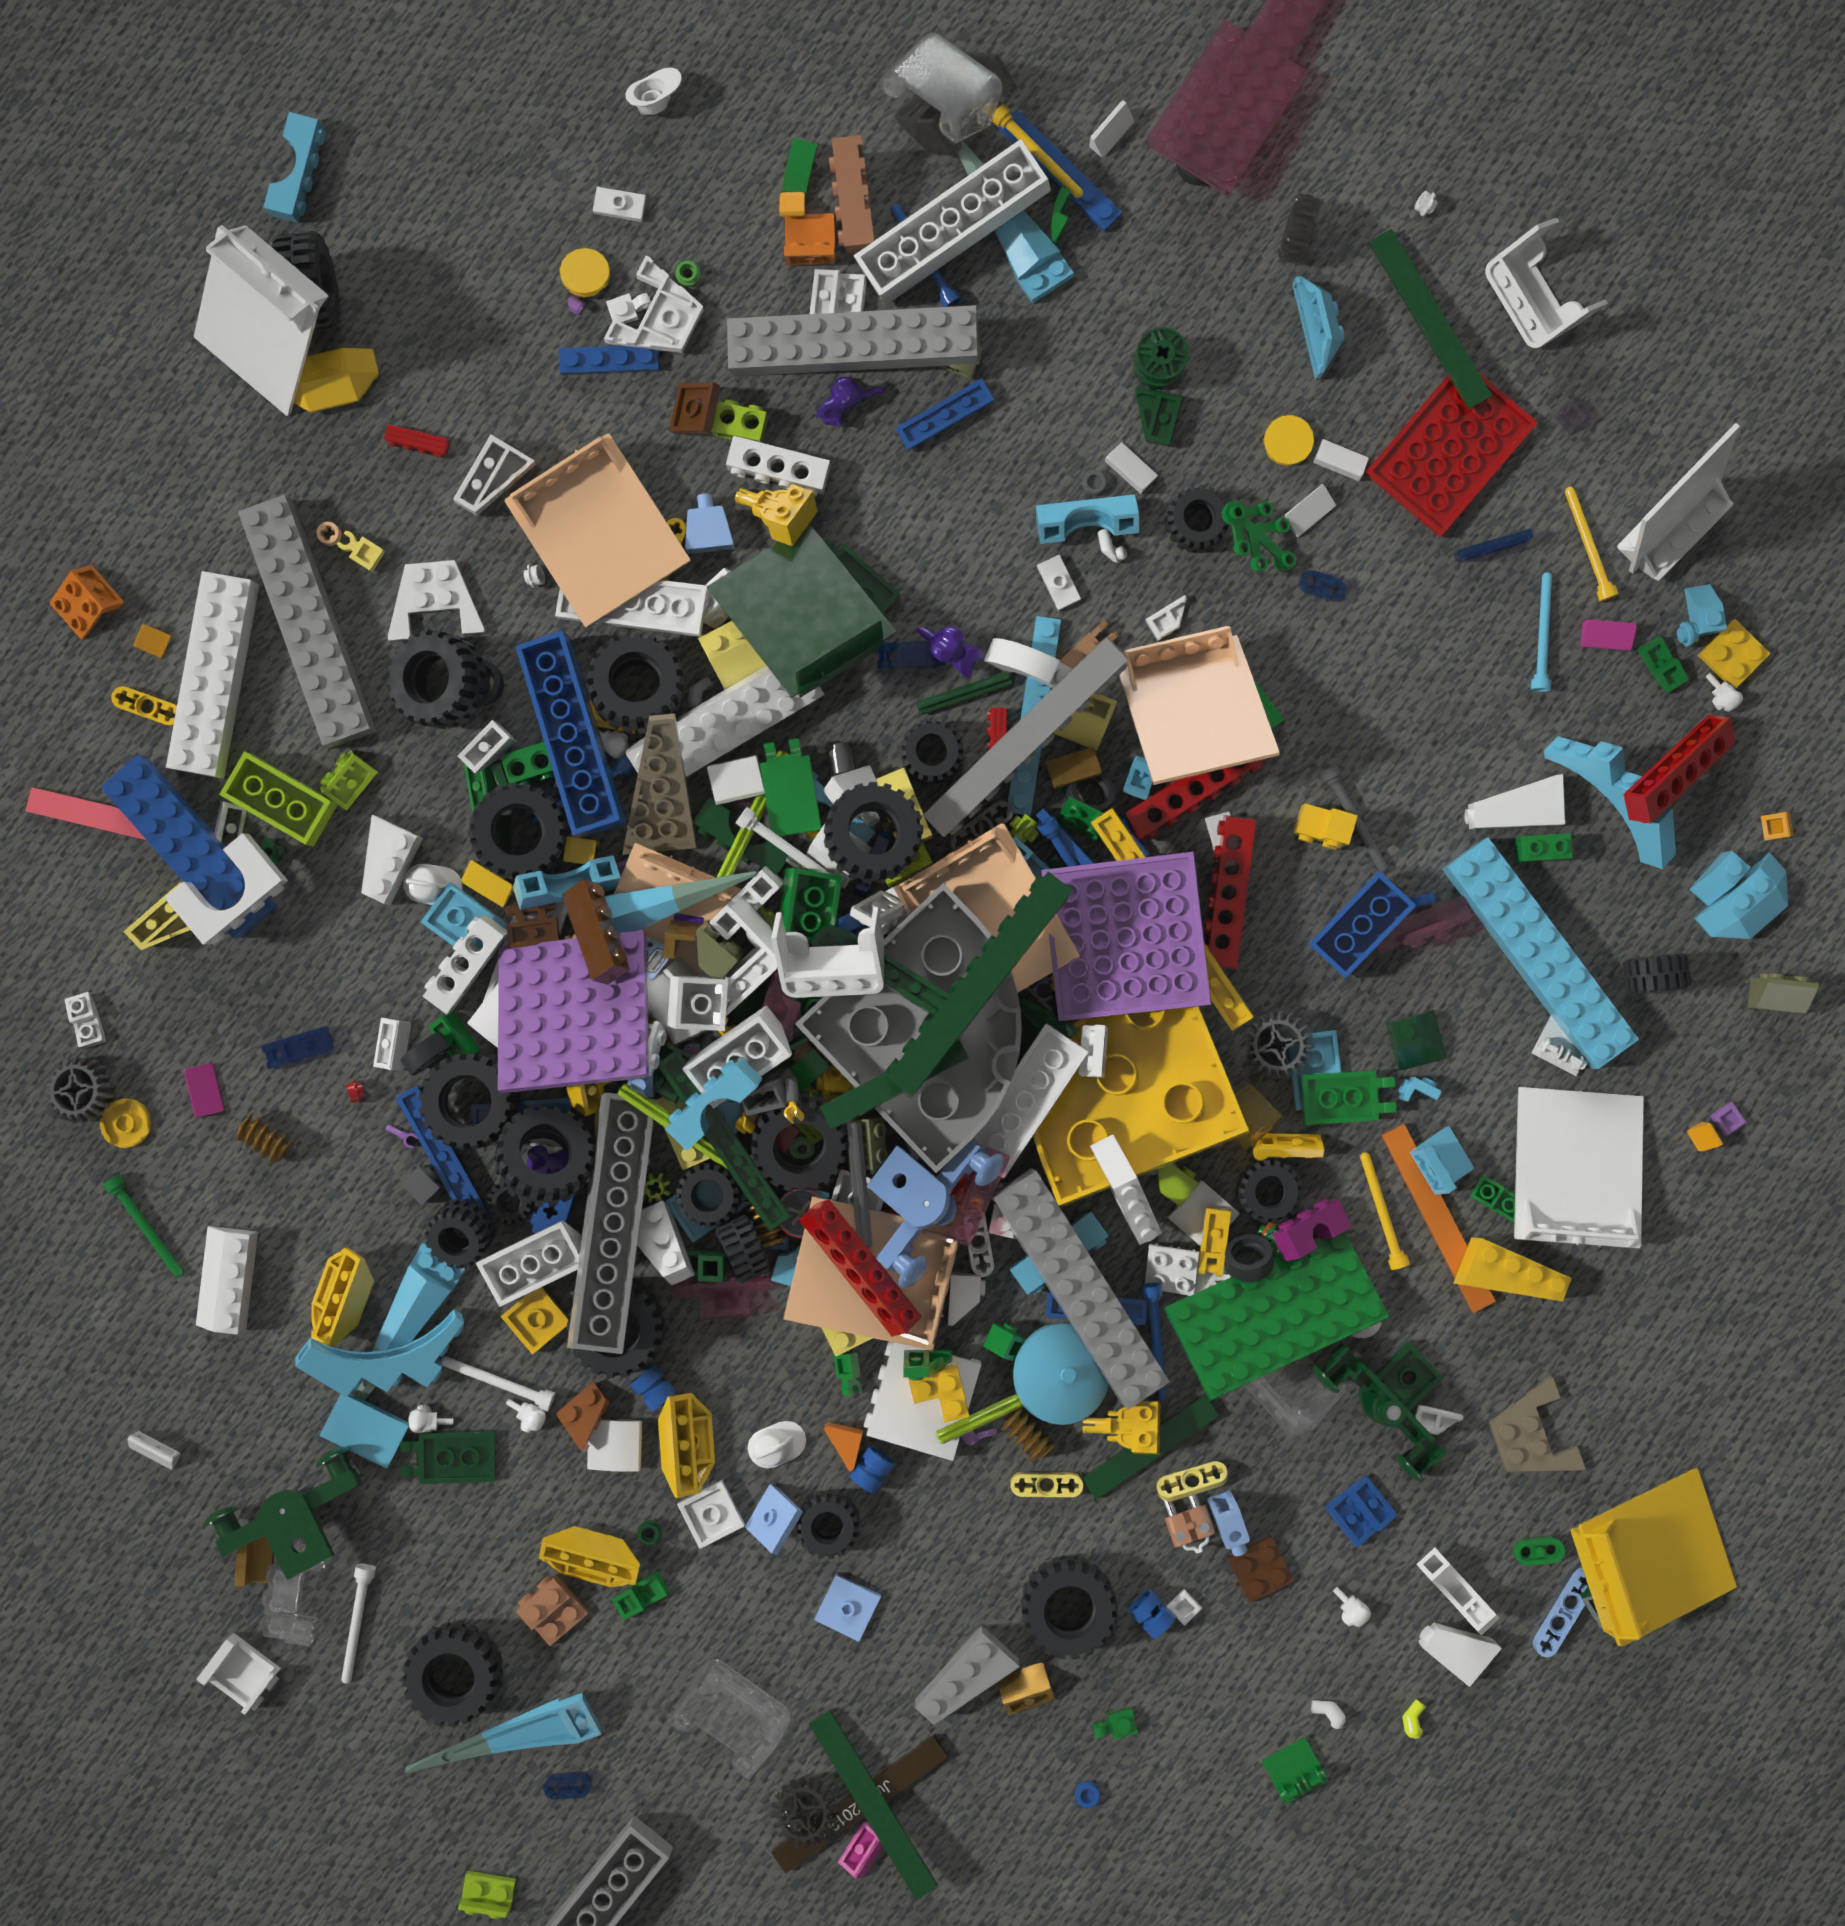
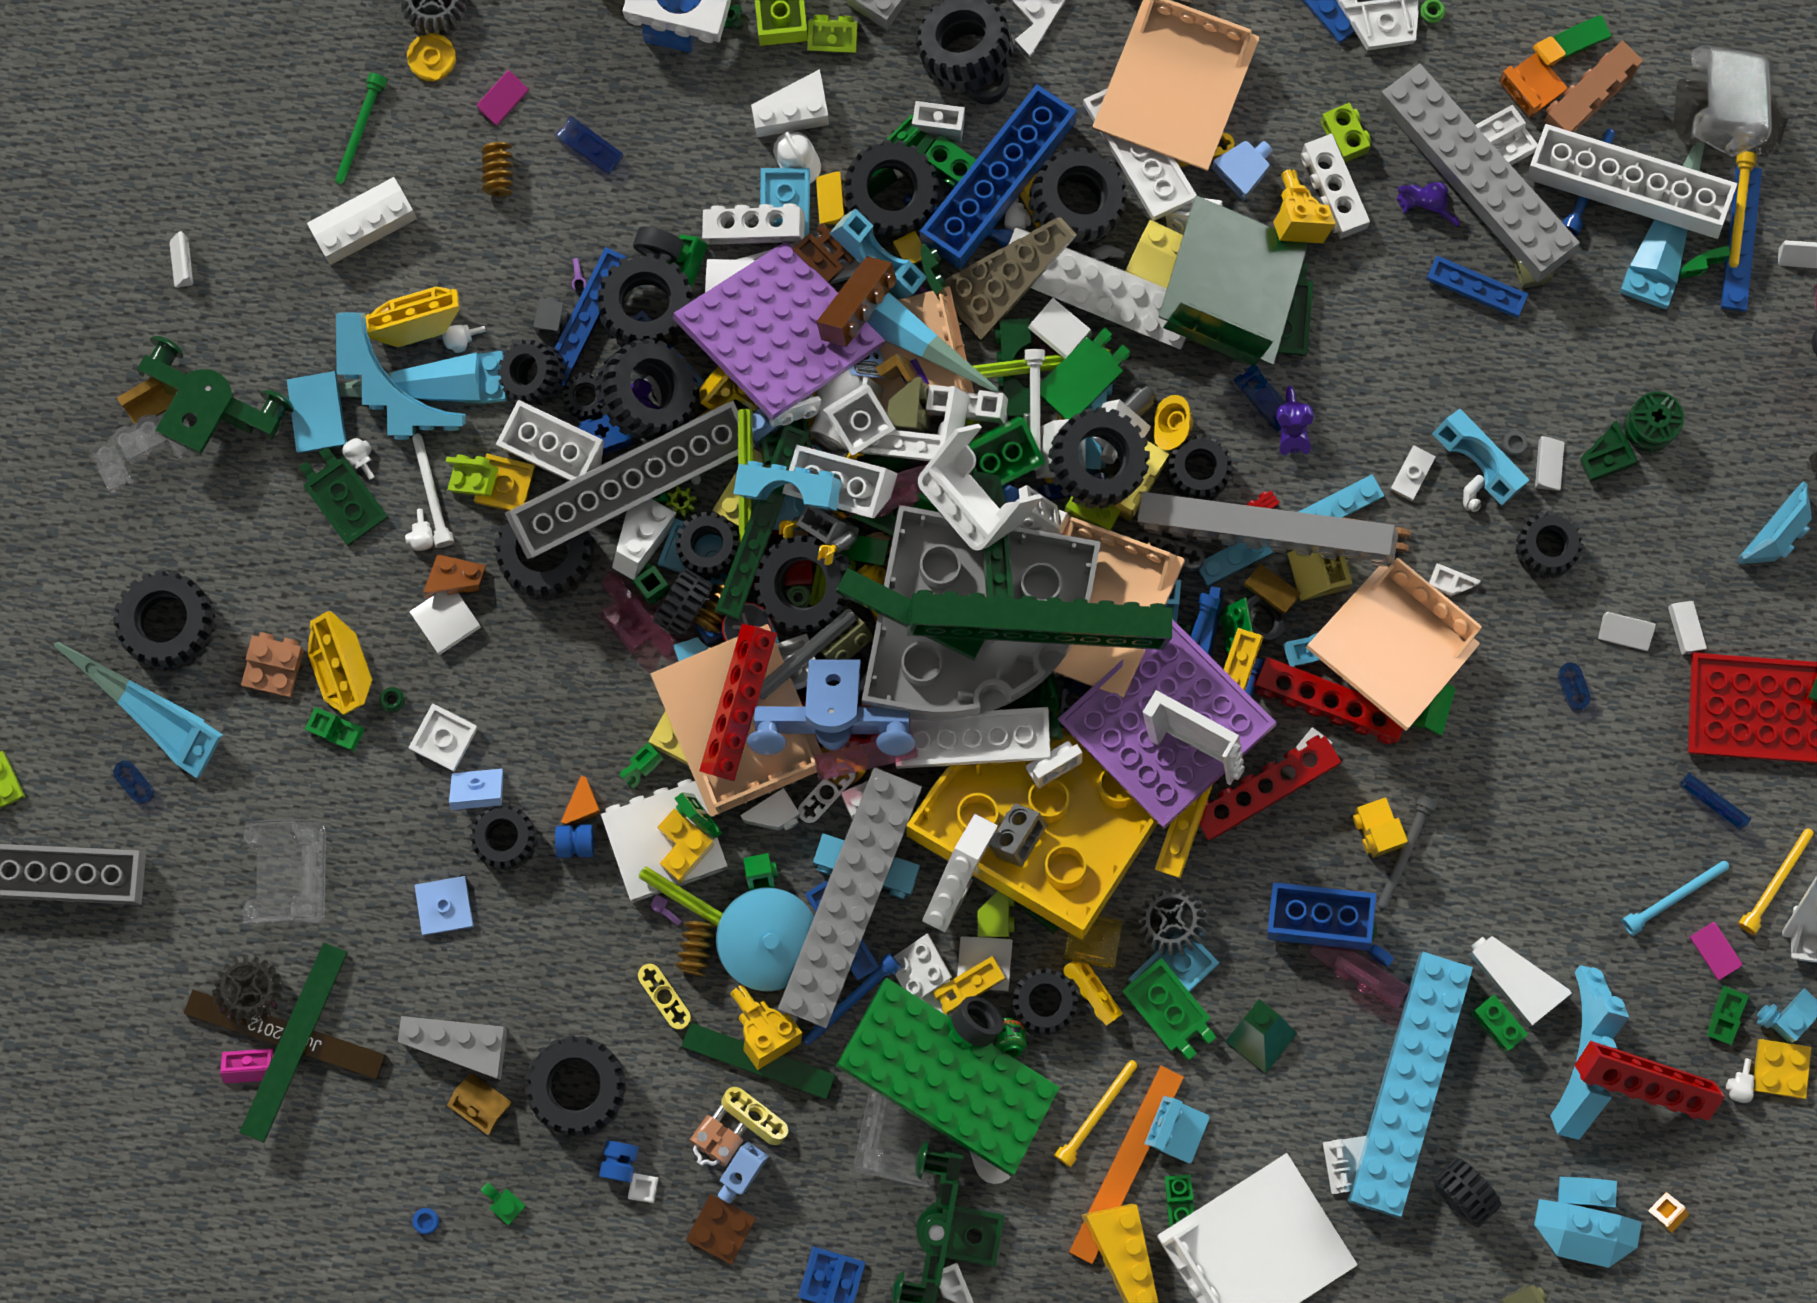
camera: 55 degrees right, 10 degrees down
(240, 1672) = (46, 454): white panel -> none
(355, 1091) = (586, 214): red plate -> none
(364, 1574) = (194, 496): white piece -> none
(383, 1269) = (458, 337): none -> white piece
(391, 1044) = (648, 213): white slope -> none
(512, 1343) = (472, 475): none -> lime bracket
(534, 575) = (1103, 62): white plate -> none
(607, 846) = (931, 267): none -> dark green slope
(652, 1387) = (516, 611): blue wheel -> none
(686, 1444) = (489, 673): yellow wedge -> none
(694, 408) = (1330, 89): reddish brown plate -> none
(776, 1444) = (538, 751): white piece -> none
(879, 745) = (1172, 422): none -> yellow piece
(964, 693) = (1266, 462): dark green axle -> none
(1024, 828) = (1192, 586): lime gear -> none
(1026, 661) = (1328, 485): white arch -> none
(1127, 944) = (1168, 716): none -> white panel
(1134, 1119) = (1017, 835): none -> dark grey brick
(1256, 535) = (1573, 599): green plant -> none
(1288, 440) = (1670, 573): yellow tile -> none
(1296, 1237) = (1022, 1047): magenta arch -> none
(1425, 1087) = (1228, 1071): medium azure bracket -> none

